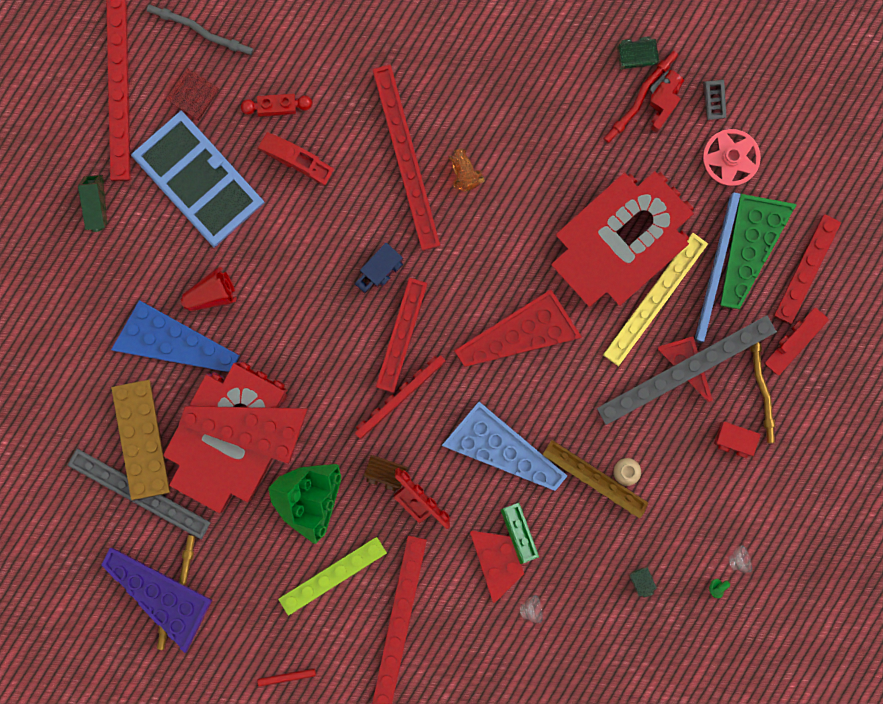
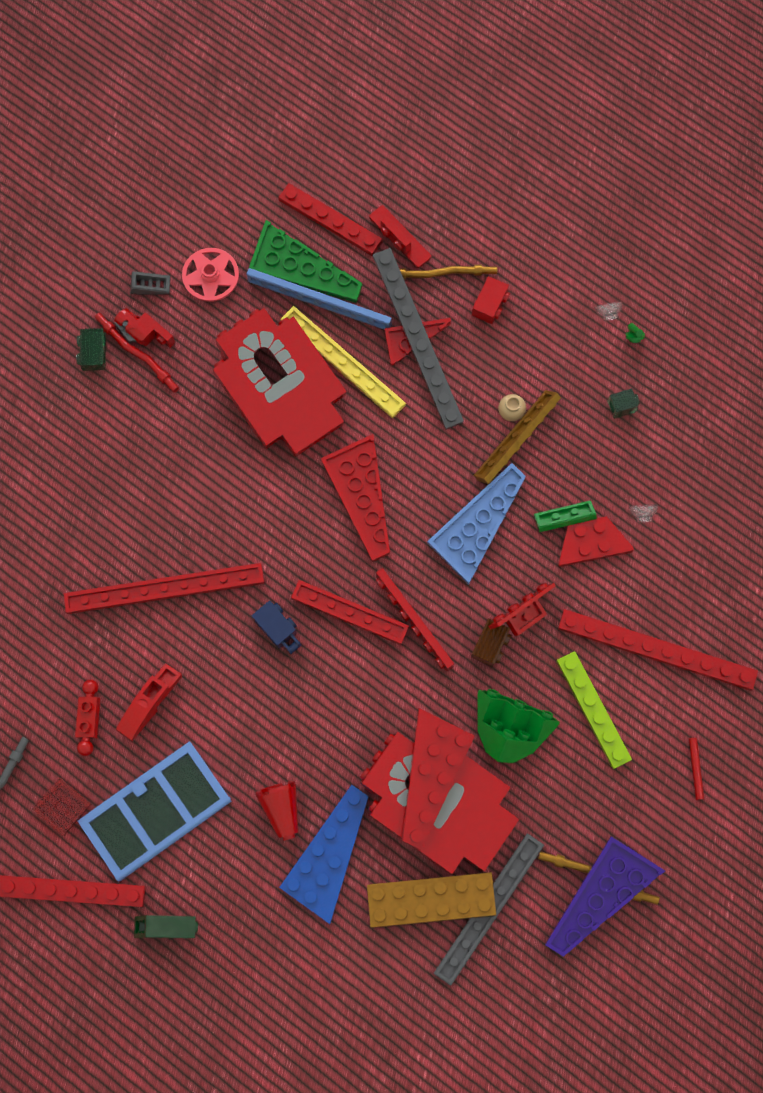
camera: 85 degrees left, 10 degrees down
(466, 176) = (189, 529): clear orange piece -> none

